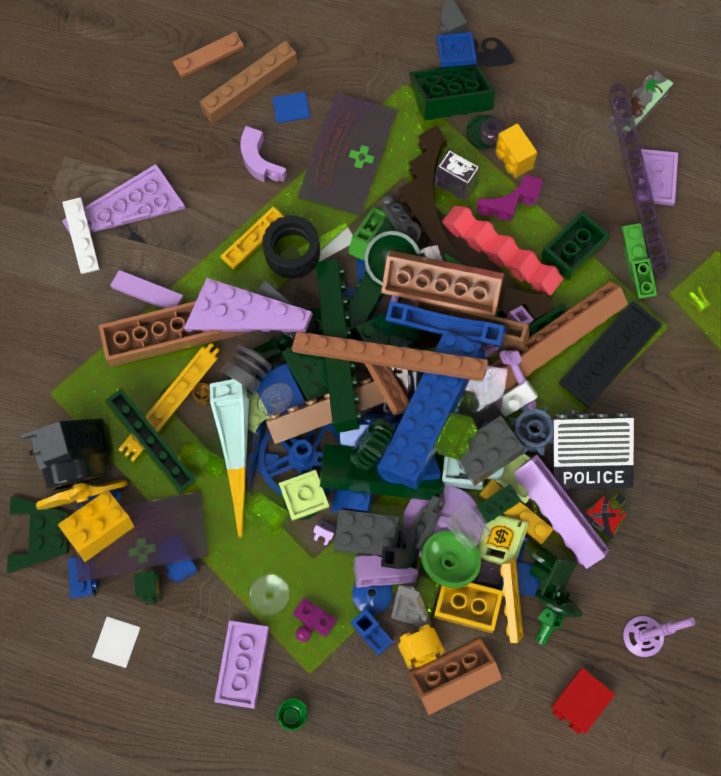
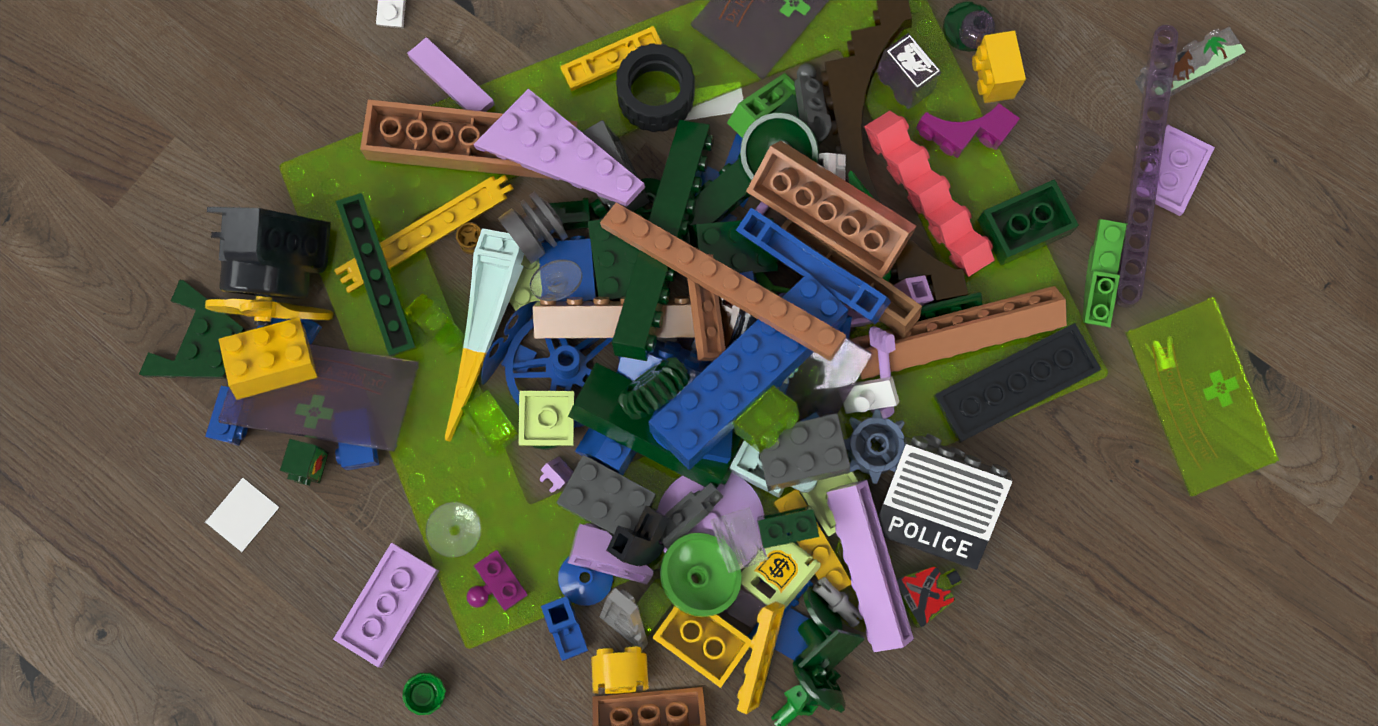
camera: 15 degrees right, 5 degrees up
(549, 544) = (838, 601): none -> light grey pin

